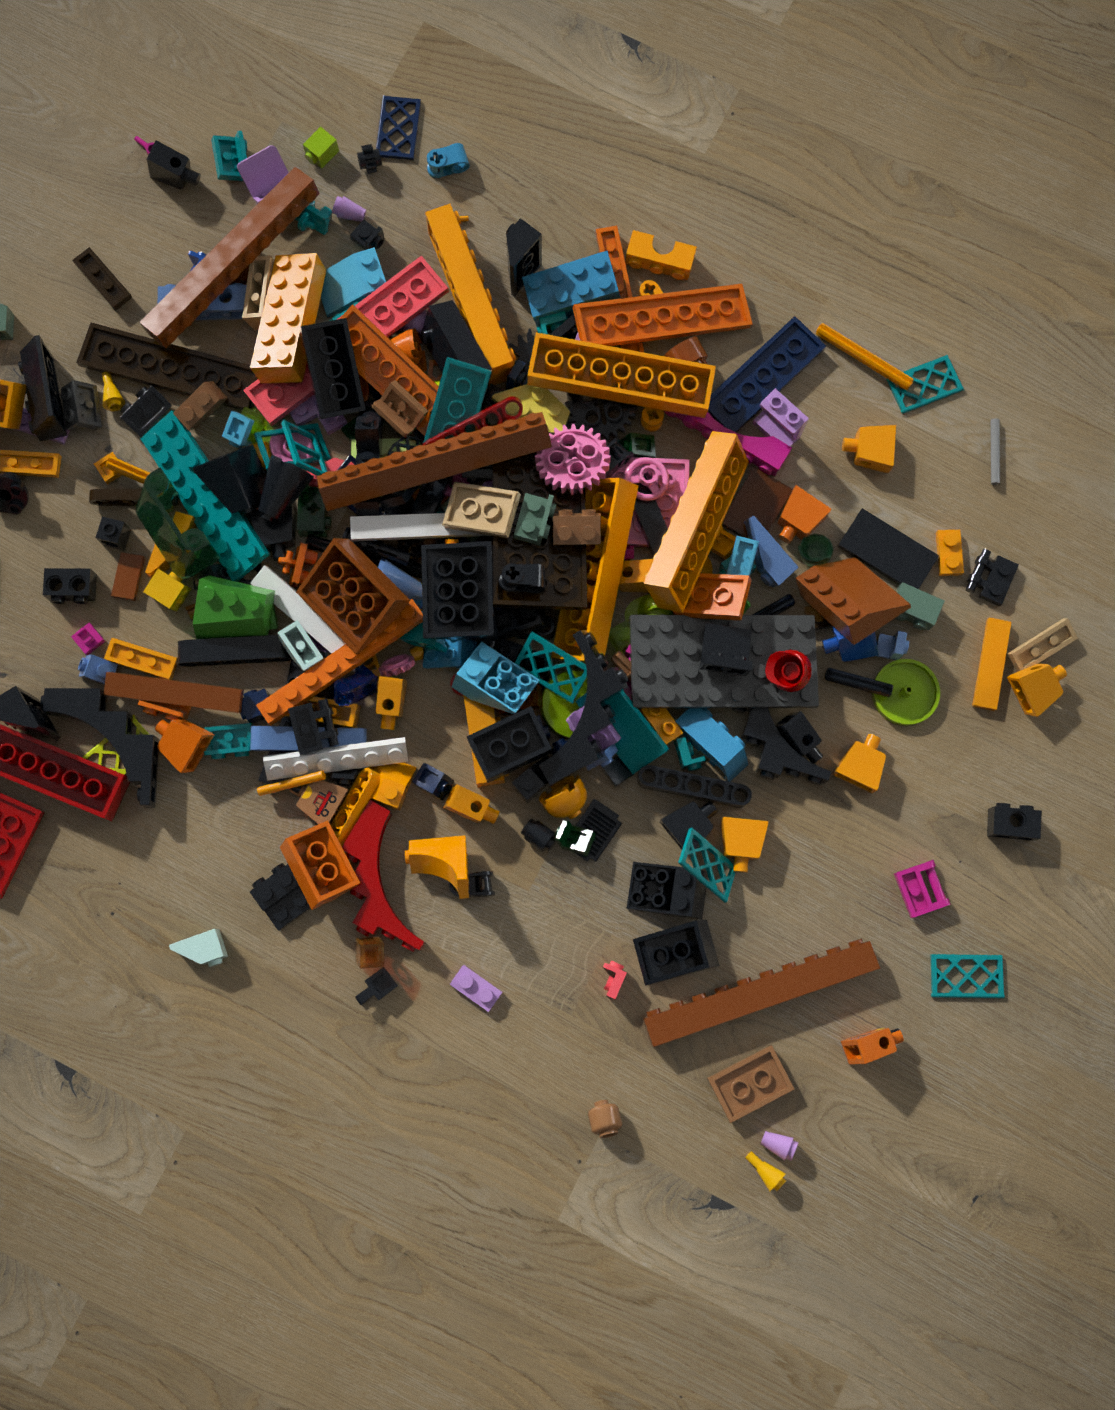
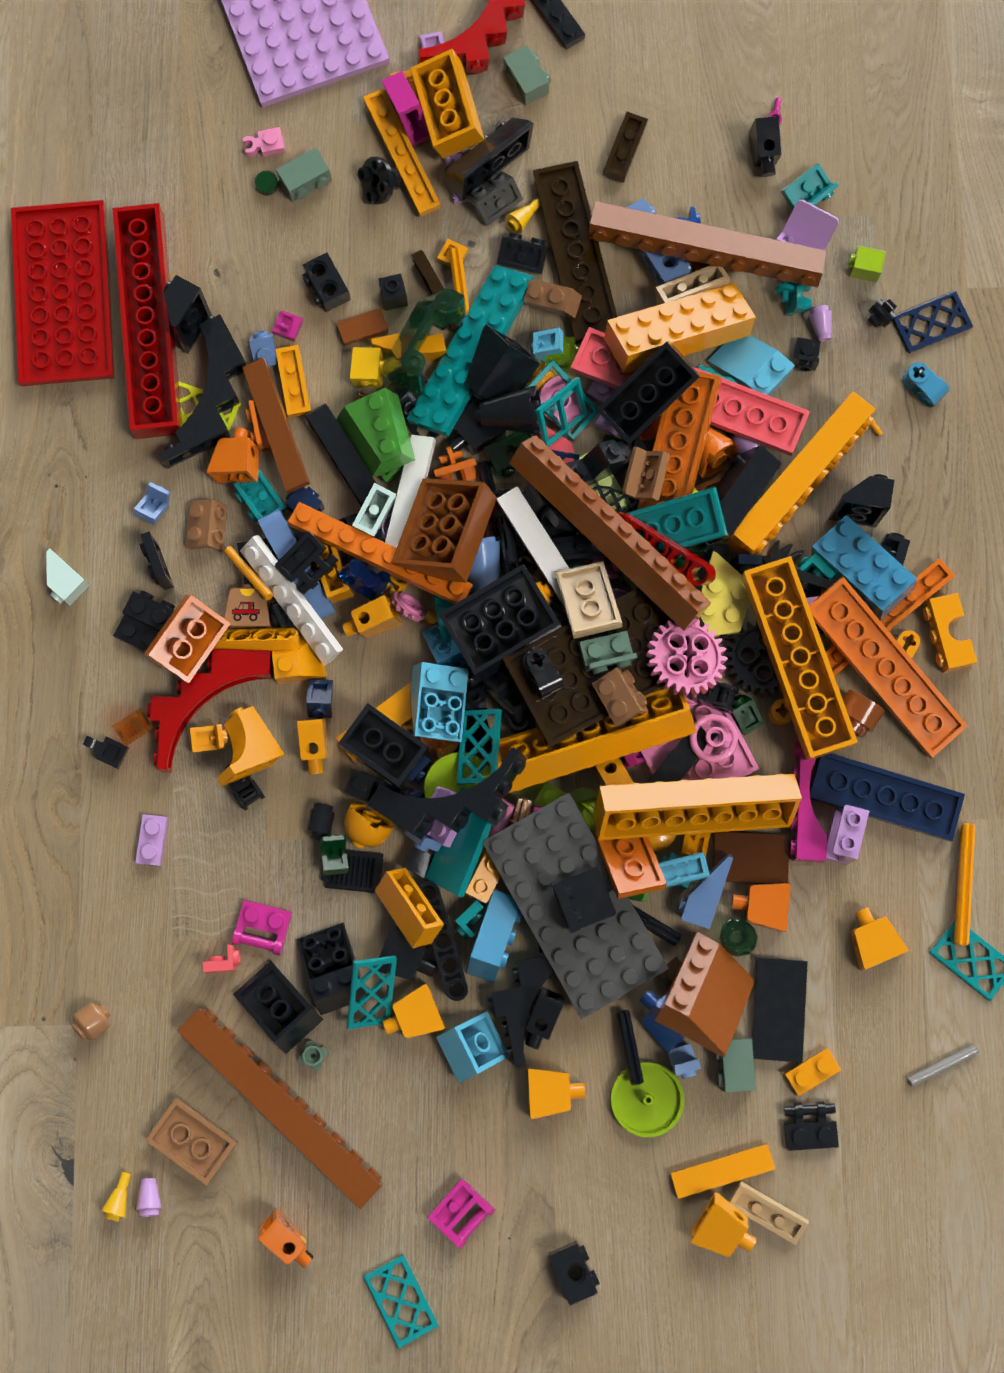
camera: 65 degrees right, 0 degrees up
(180, 835) = (153, 504): none -> medium blue bracket
(225, 799) = (206, 524): none -> medium nougat bracket
(227, 856) = (158, 568): none -> black plate
(414, 894) = (207, 738): none -> light orange bracket
(568, 252) = (899, 543): none -> black bracket
(595, 926) = (264, 919): none -> dark pink plate
(653, 797) = (409, 907): none -> light orange brick
(725, 944) = (306, 1058): none -> sand green plate
(788, 670) = (595, 970): red hat -> none
(793, 808) = (472, 1047): none -> medium azure slope

